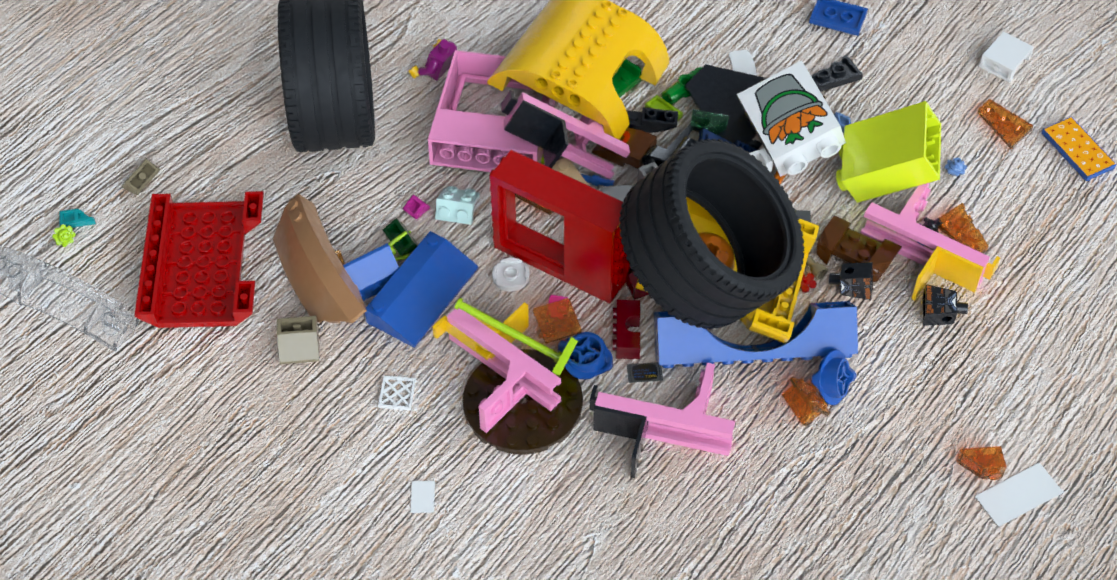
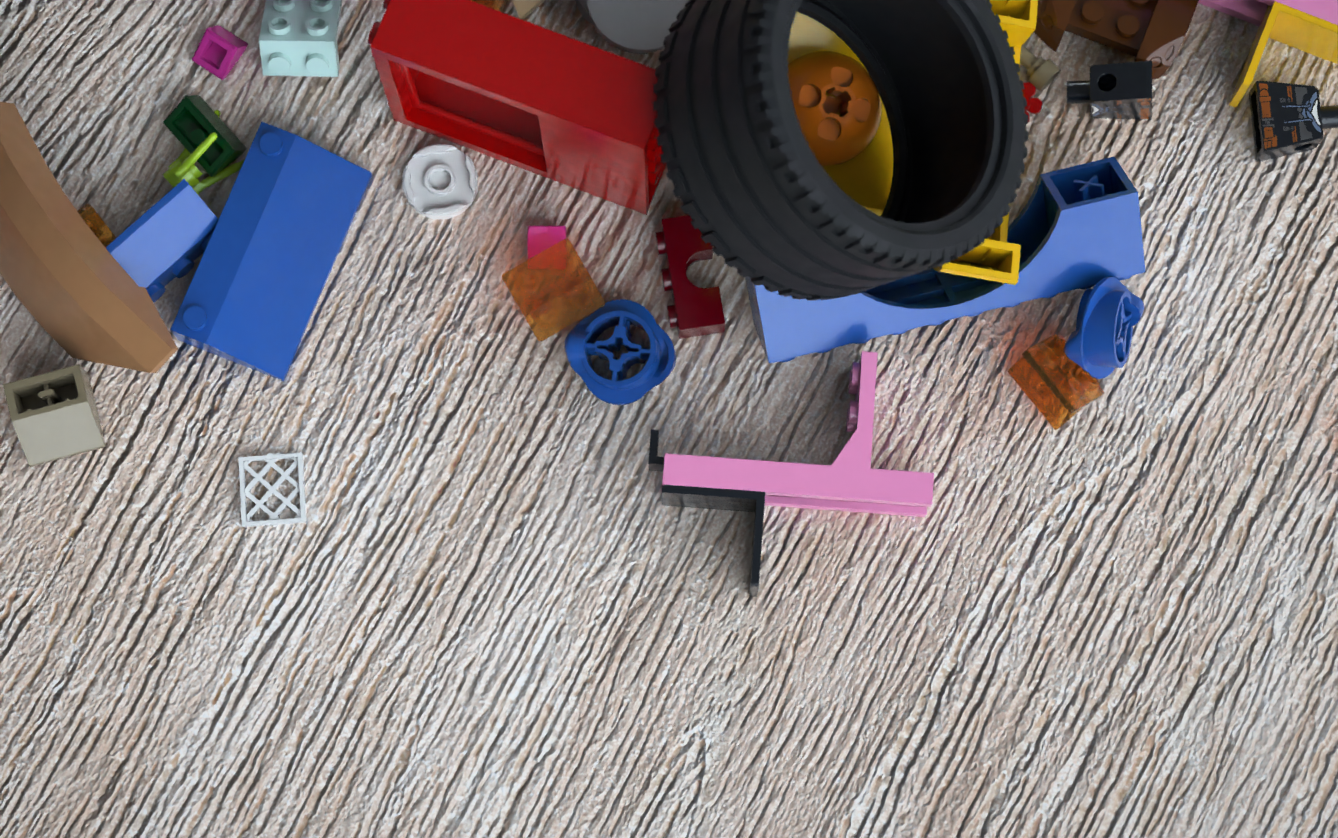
camera: 10 degrees left, 25 degrees up
(422, 496) = (368, 705): white sticker -> none
(495, 350) = (434, 378): bright pink piece -> none
(526, 426) = (504, 523): dark brown plate -> none
(559, 357) = (580, 389): lime tile -> none
(644, 372) = (737, 362): sticker -> none

